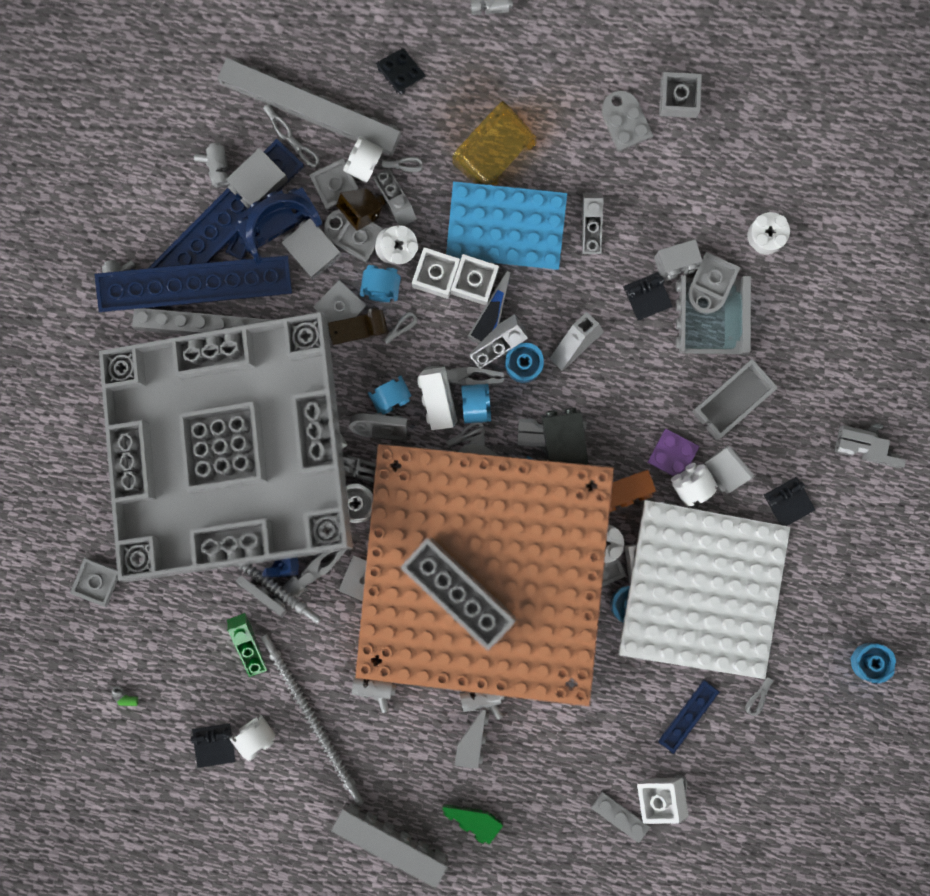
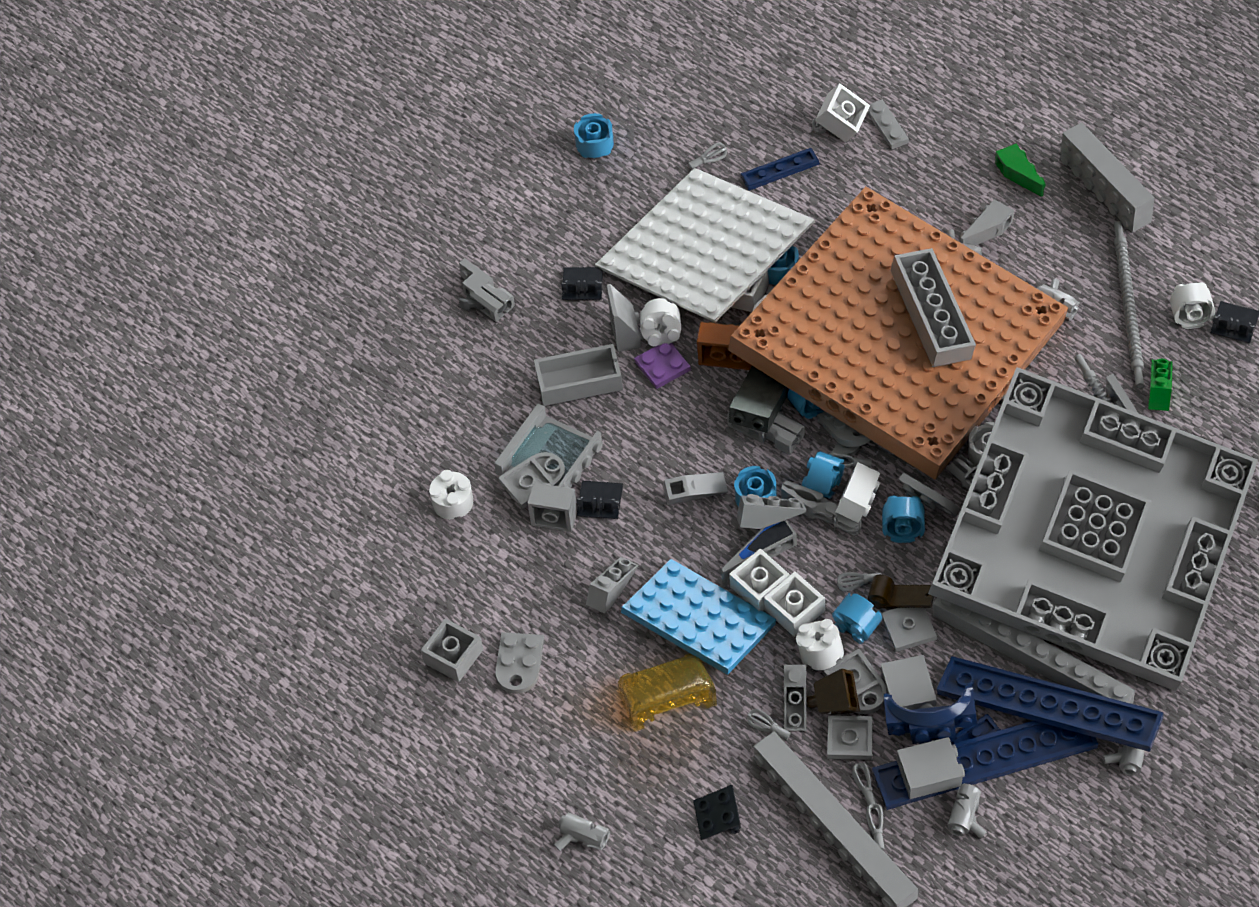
camera: 145 degrees left, 30 degrees down
(363, 159) = (807, 735): white brick -> none

